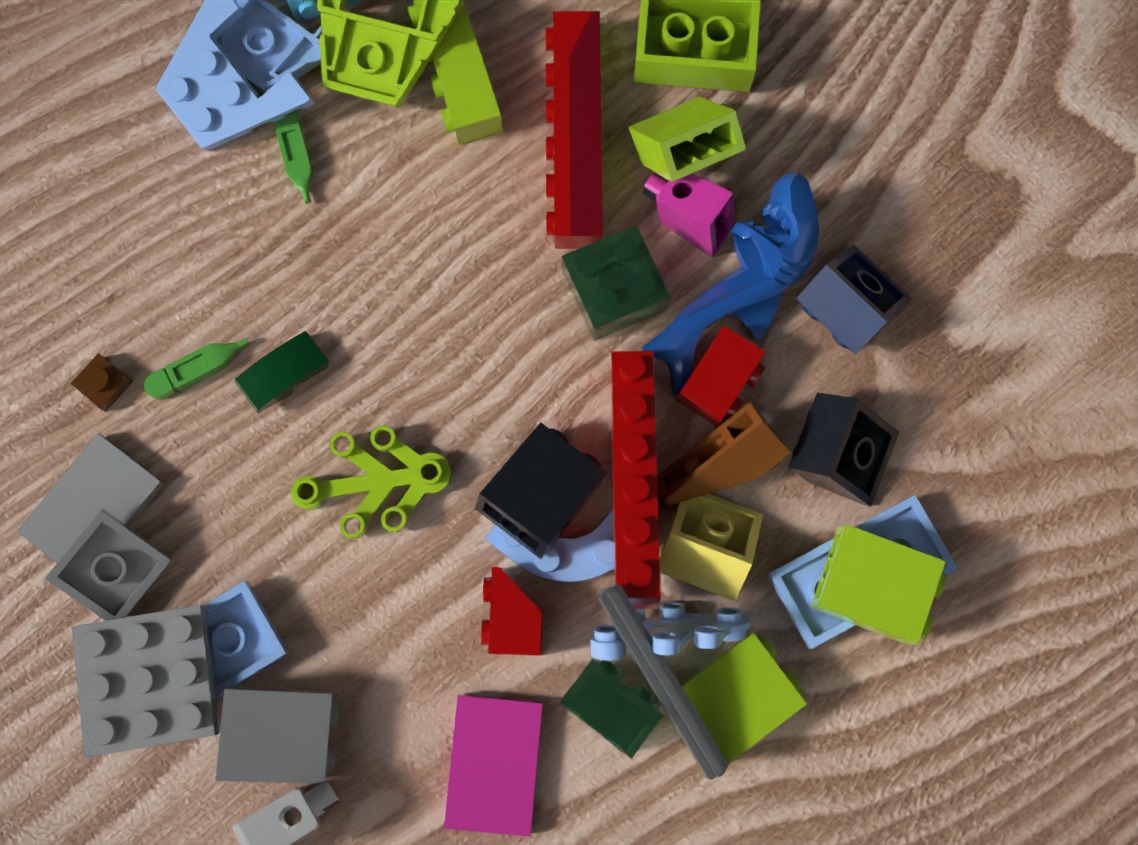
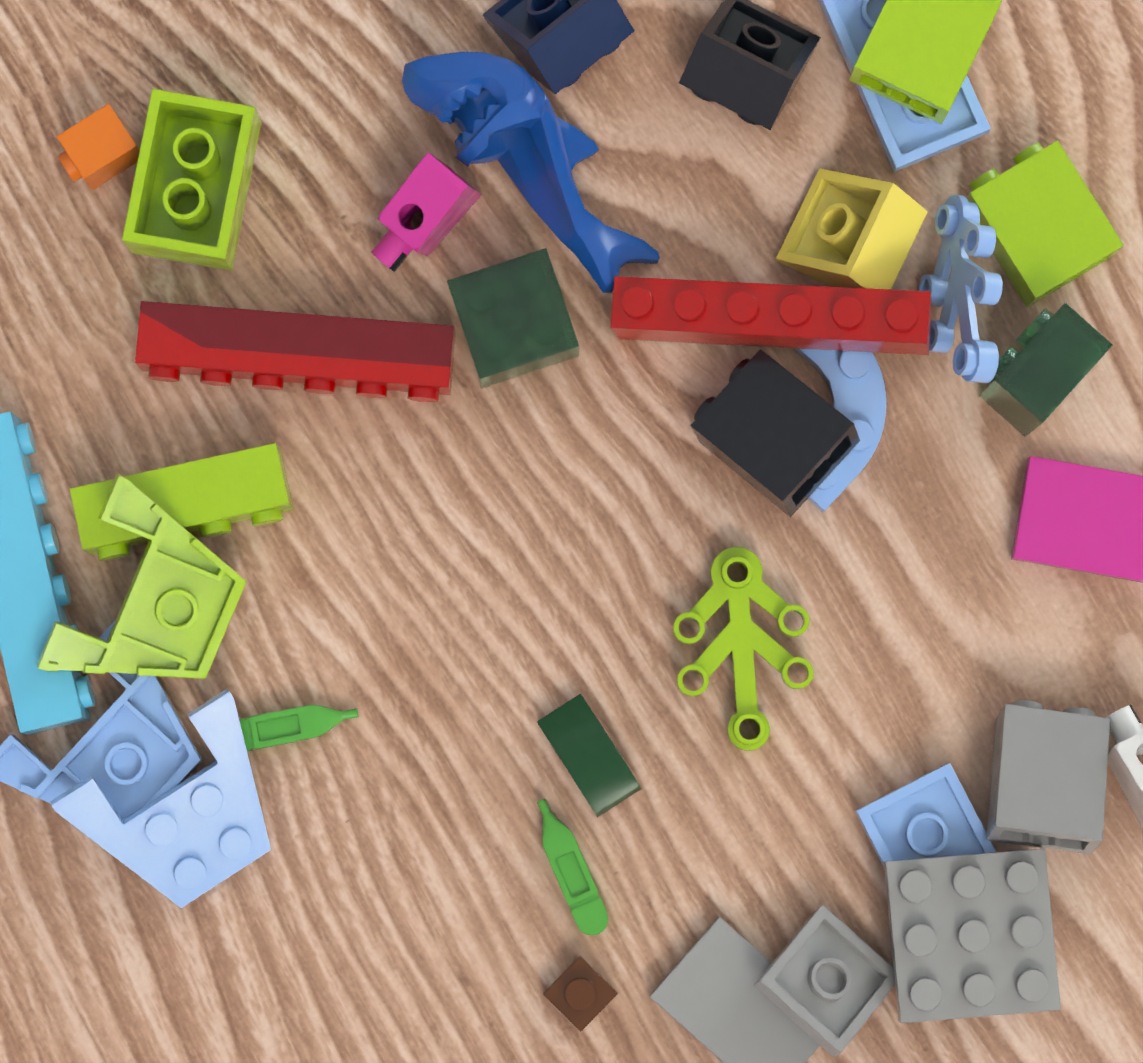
camera: 90 degrees left, 5 degrees up
(514, 618) = (929, 481): red slope -> none
(663, 681) = (1025, 301): dark grey axle -> none
(687, 138) = (337, 204): lime brick -> none
(721, 376) = (647, 197): red brick -> none
(727, 457) = (752, 204): dark orange slope -> none

